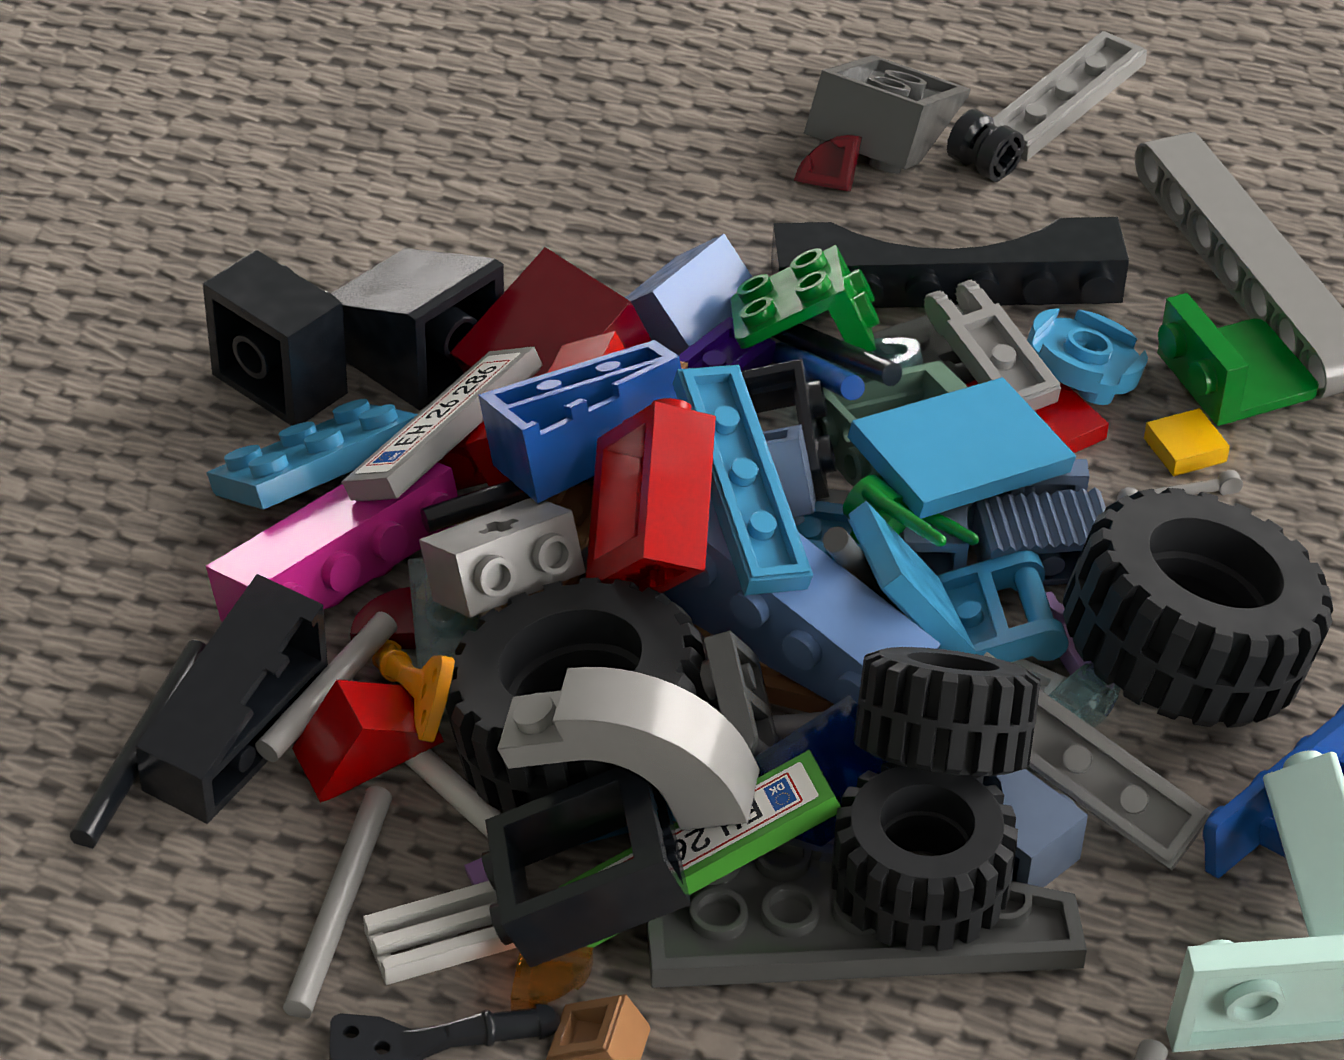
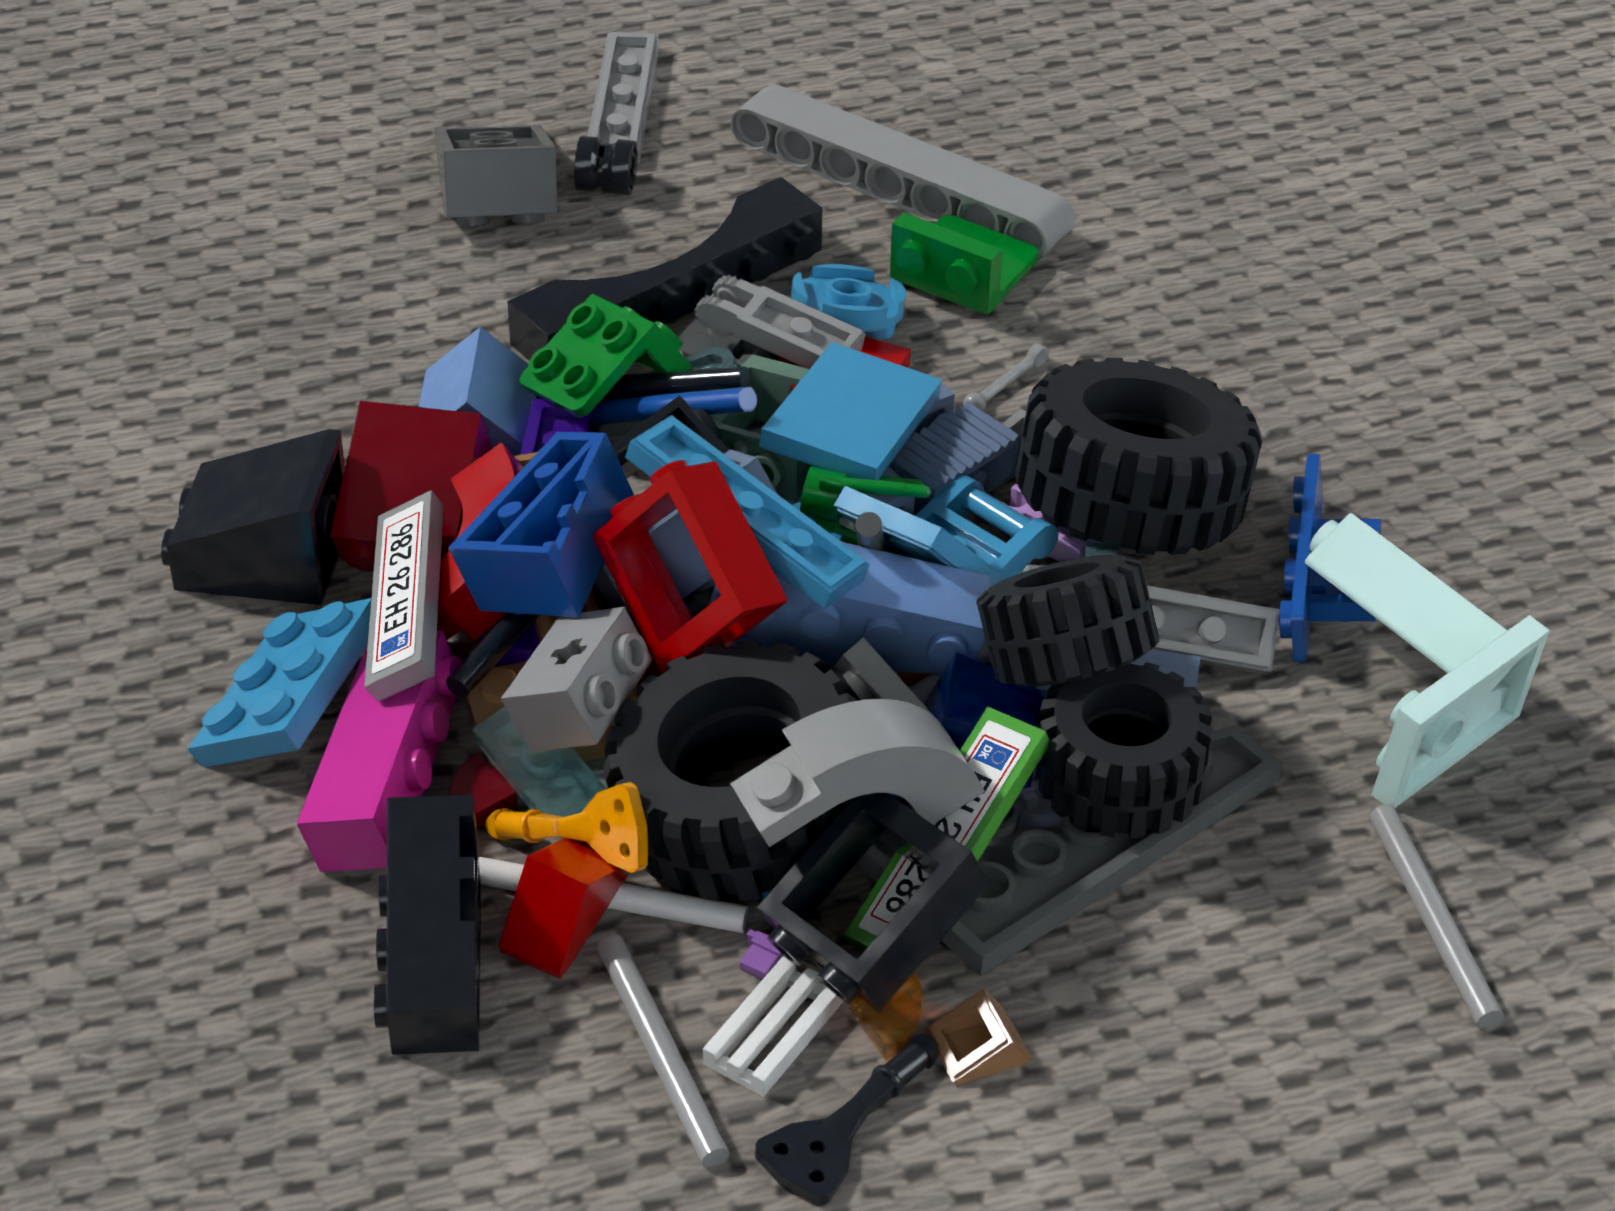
camera: 35 degrees left, 0 degrees up
(125, 767) = (357, 1015): black bar -> none
(276, 338) = (160, 595): black brick -> none
(342, 667) = (493, 875): light grey bar -> none
(831, 163) = (491, 234): dark red tile -> none
(1186, 442) = (977, 338): yellow tile -> none

